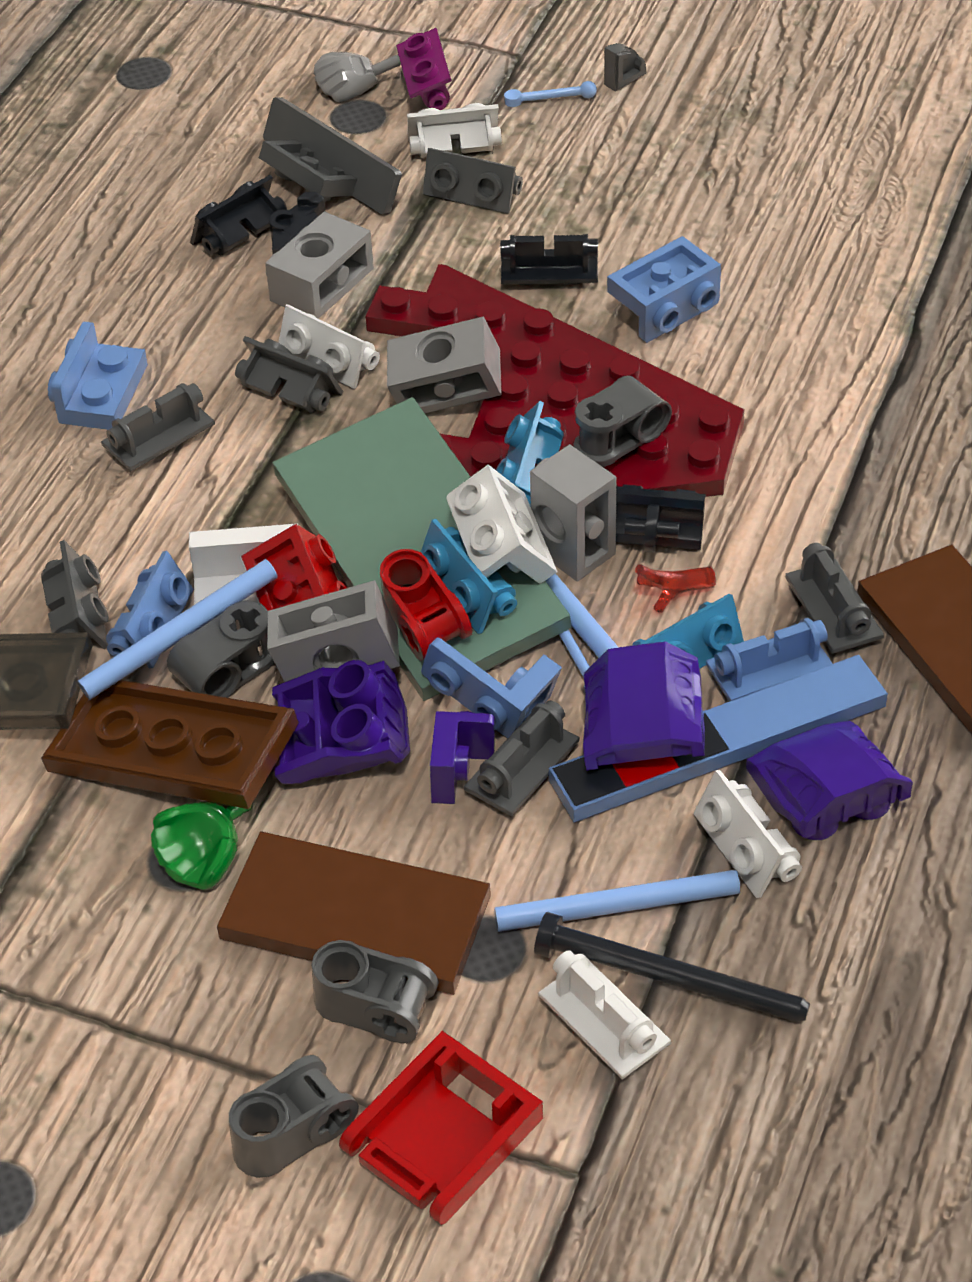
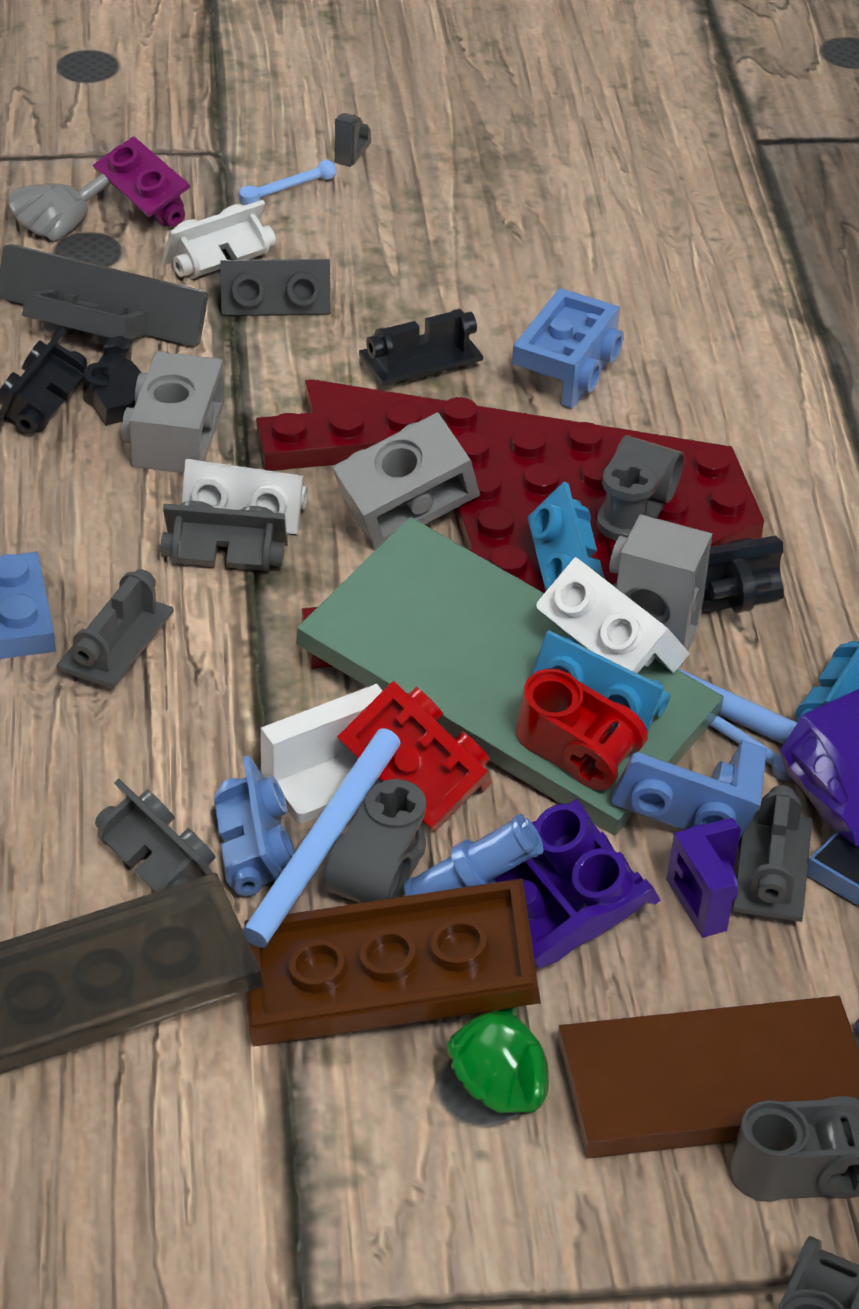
camera: 30 degrees left, 5 degrees down
(277, 684) = (481, 860): none -> medium blue pin
(333, 631) = (507, 776): light grey brick -> none
(675, 582) = (788, 636): clear red bar -> none

